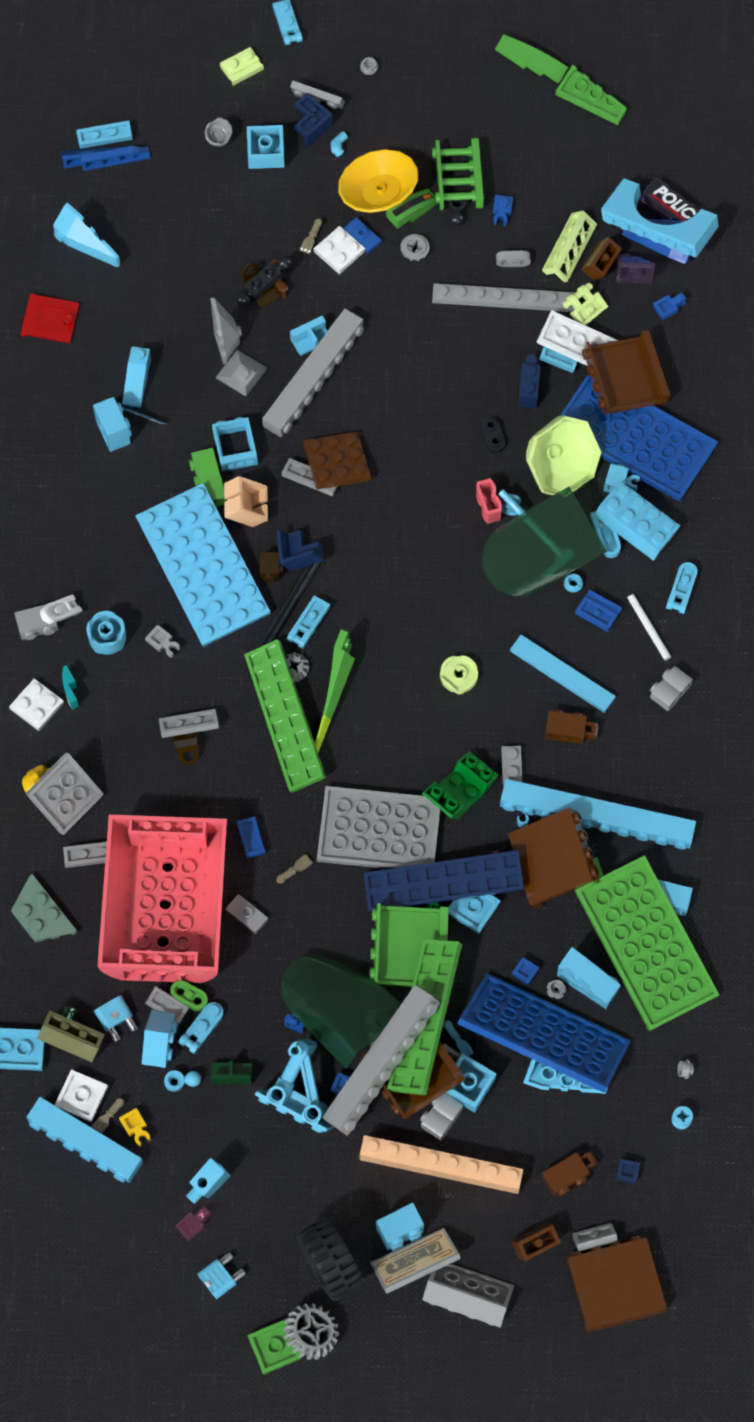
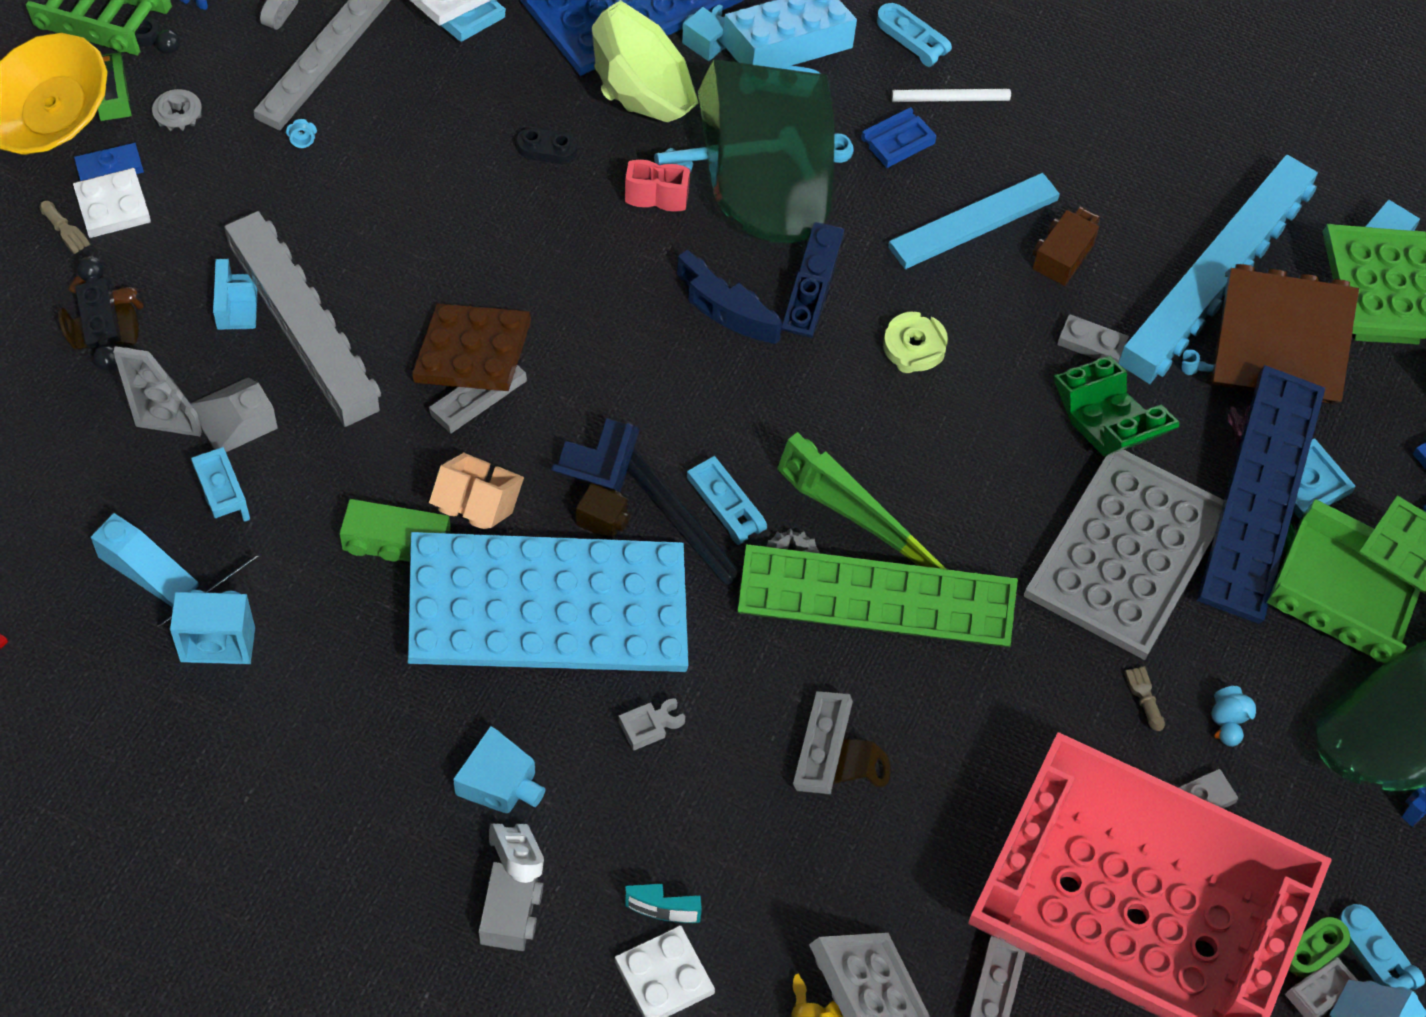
camera: 70 degrees left, 10 degrees down
(101, 586) = (498, 775): none -> medium azure torso
(112, 641) = (589, 817): medium azure brick -> none
(193, 388) = (220, 484): none -> medium azure panel
(236, 460) = (358, 446): medium azure window -> none
(250, 837) = (1045, 728): blue plate -> none
(304, 911) = (1229, 711): none -> medium azure animal
(431, 313) = (301, 139): none -> medium azure plate
(432, 568) = (733, 307): none -> dark blue slope
(470, 607) = (813, 280): none -> dark blue slope
(529, 383) = (493, 65): dark blue brick -> none
(671, 688) = (1061, 106): light grey brick -> none

